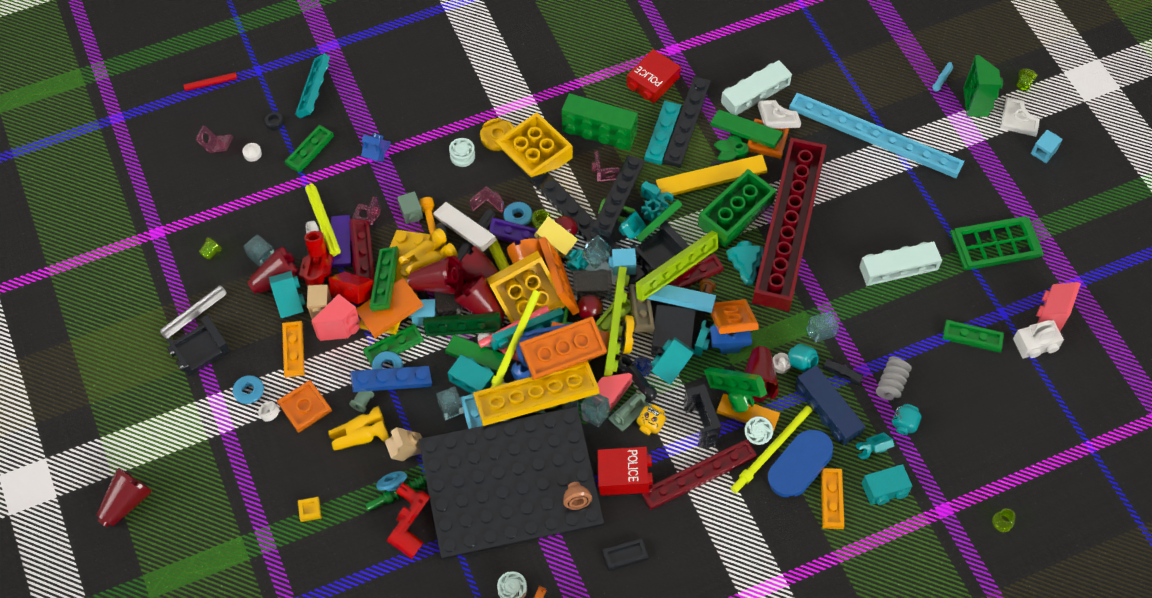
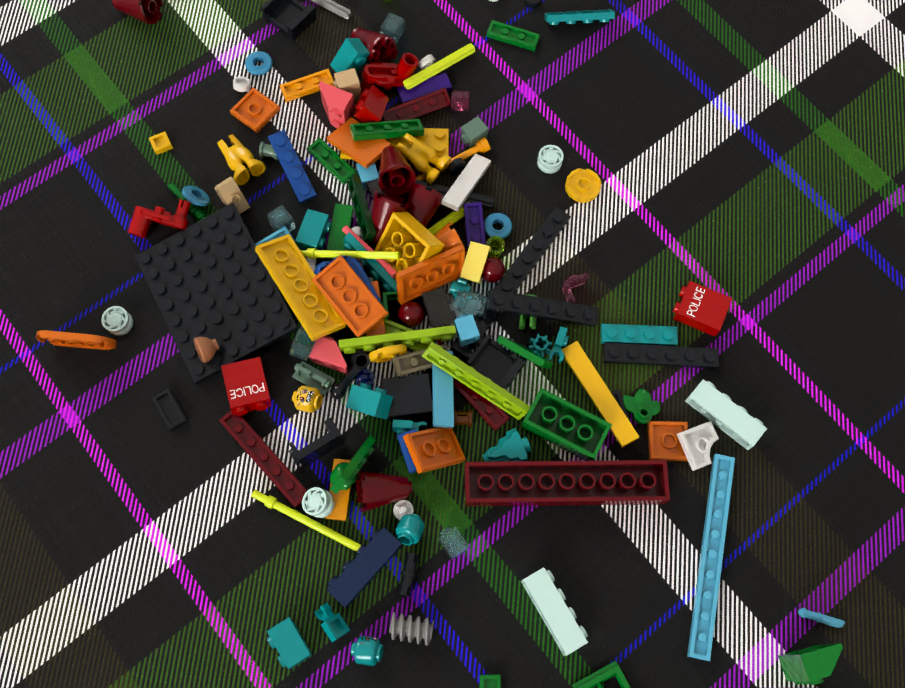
camera: 70 degrees right, 10 degrees up
(374, 147) = (527, 84): blue brick -> none
(387, 356) = (313, 154): dark azure piece -> none
(492, 197) = (508, 191): clear pink bracket -> none
(536, 146) = (571, 217): yellow slope -> none
(599, 122) = (622, 268): green brick -> none
(632, 225) = (510, 329): teal piece -> none
(746, 129) = (669, 416): green tile -> none
(800, 463) = (295, 551): blue tile -> none
(832, 498) = (266, 591): light orange tile -> none

